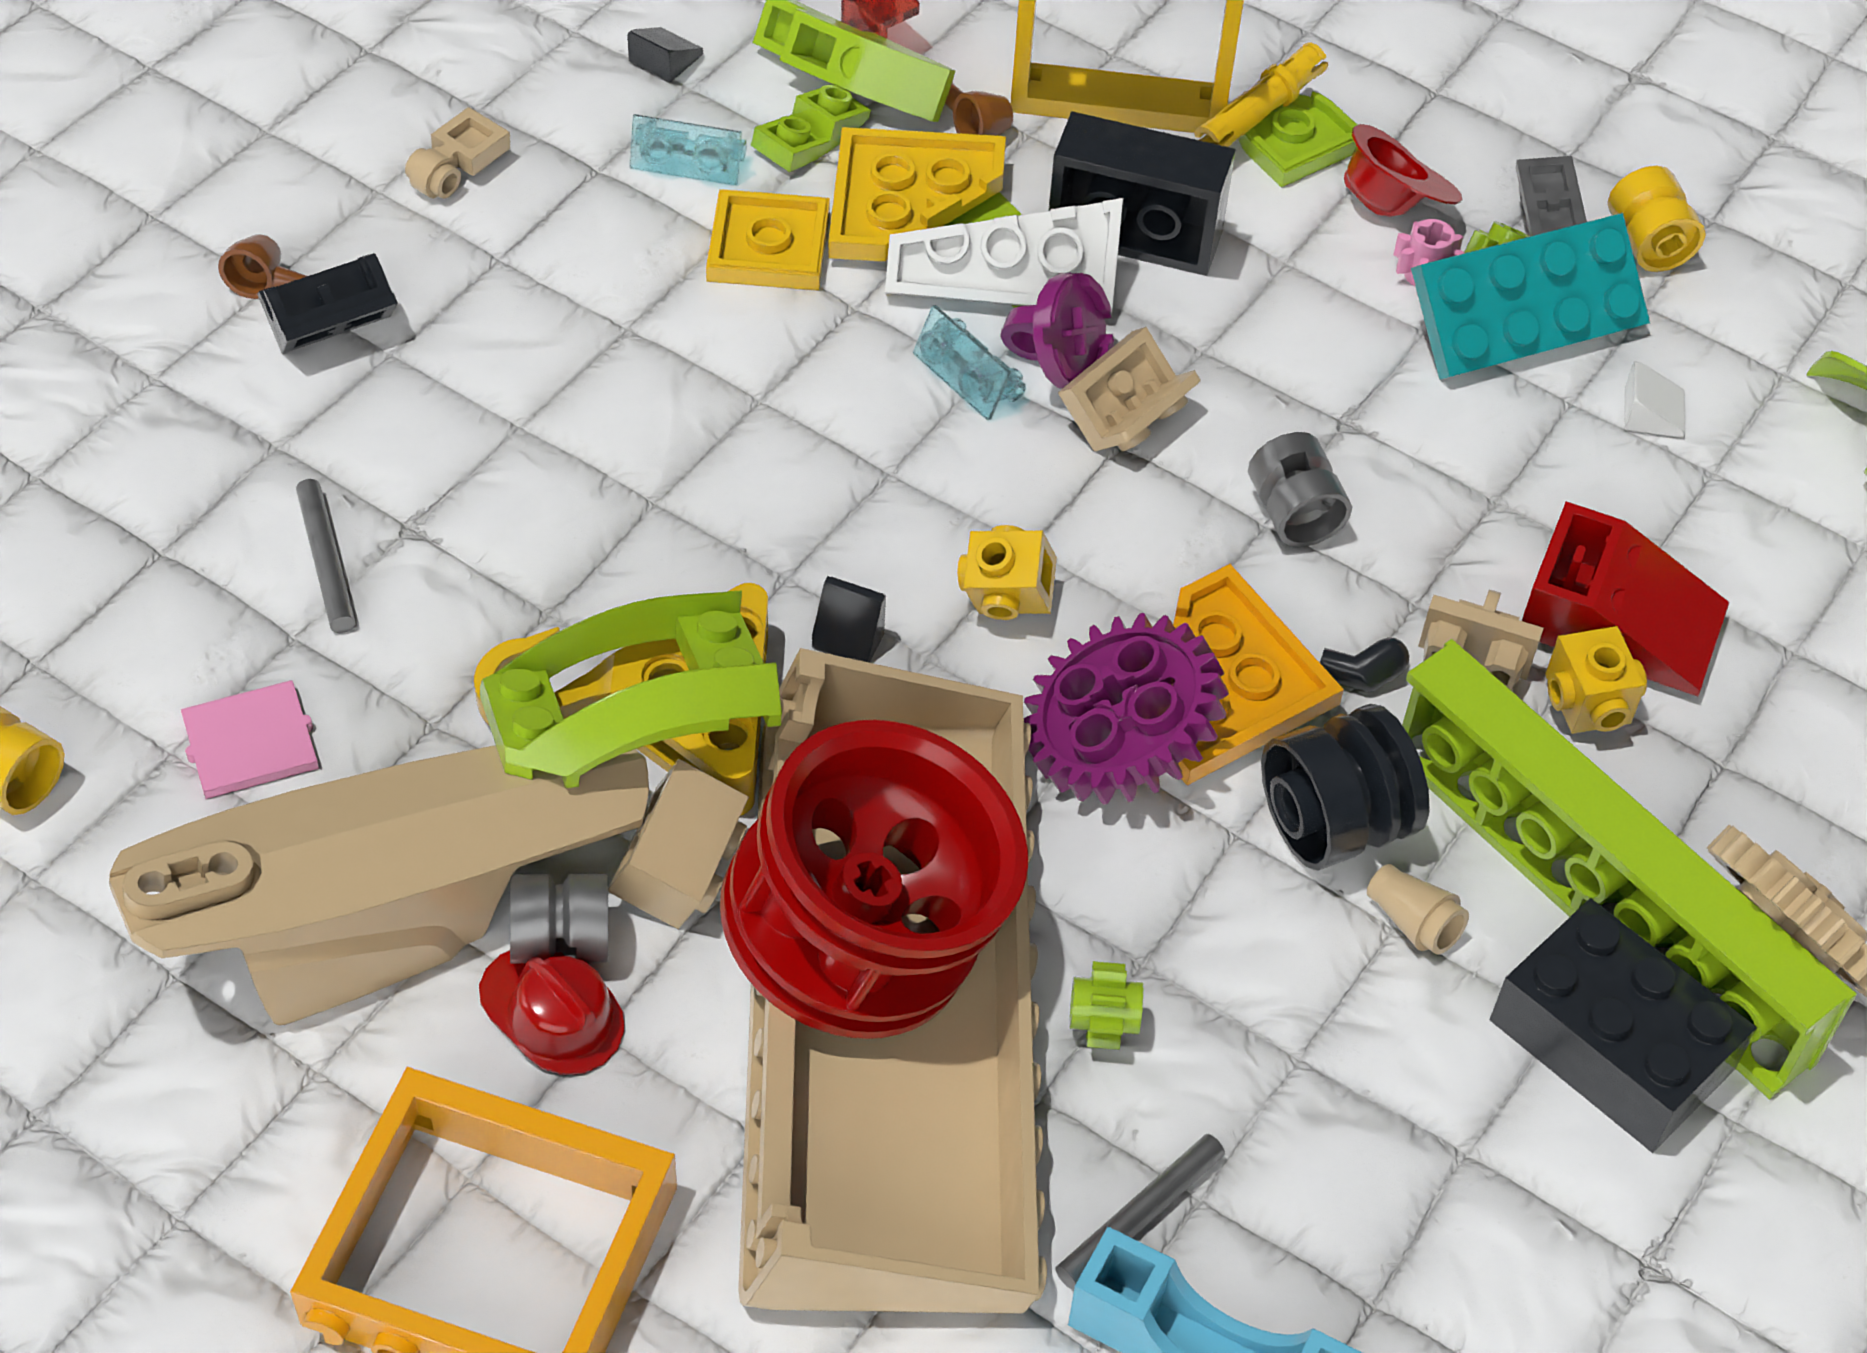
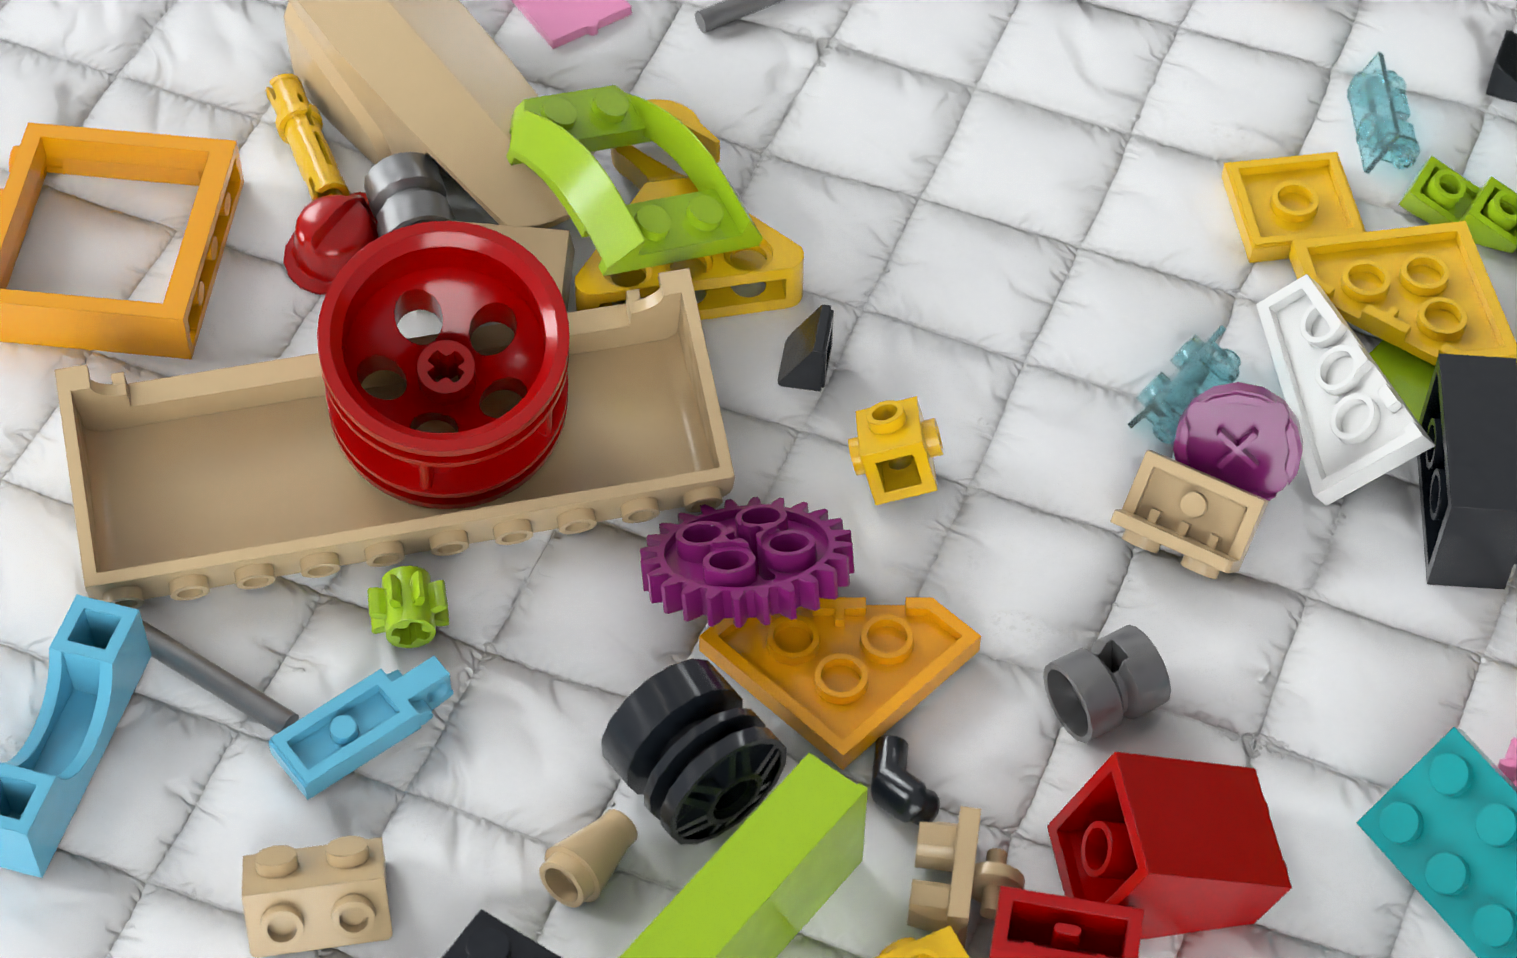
camera: 80 degrees right, 0 degrees up
(397, 1014) = (301, 128): none -> yellow pin
(1237, 1077) = (359, 725): none -> medium azure hinge
(1426, 1140) = (316, 896): none -> tan bracket
(1477, 497) = (1171, 840): none -> red slope

